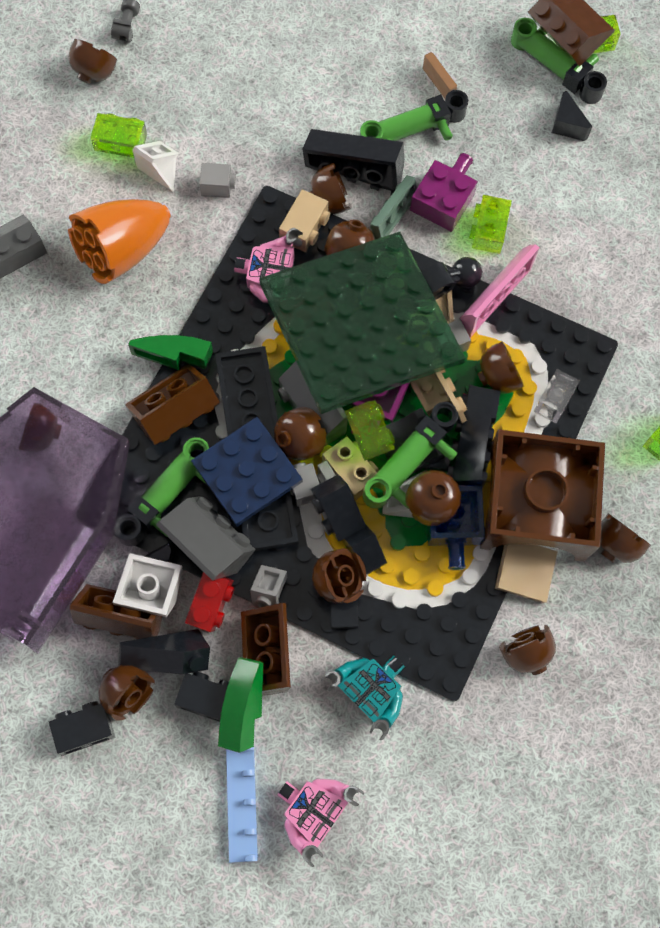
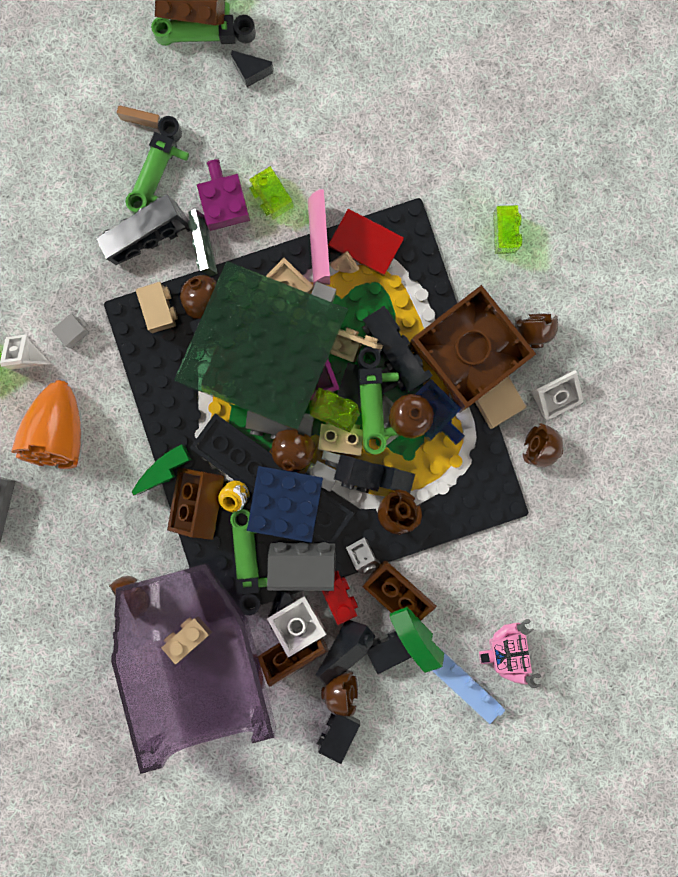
camera: 40 degrees left, 15 degrees up
(43, 505) = (186, 640): none -> tan brick
(210, 426) = (234, 496): none -> yellow head
(268, 259) = (163, 357): torso -> none
(331, 188) = (149, 269): reddish brown cylinder -> none
(371, 689) = (477, 556): torso -> none
(465, 273) = (279, 267): black beam -> none
(499, 330) = (344, 263): none -> tan tile
(499, 370) = (370, 290): reddish brown cylinder -> none
(534, 332) = (366, 242): none -> red tile
(556, 396) = (418, 271): clear slope -> none
(587, 618) = (558, 395): none -> white slope

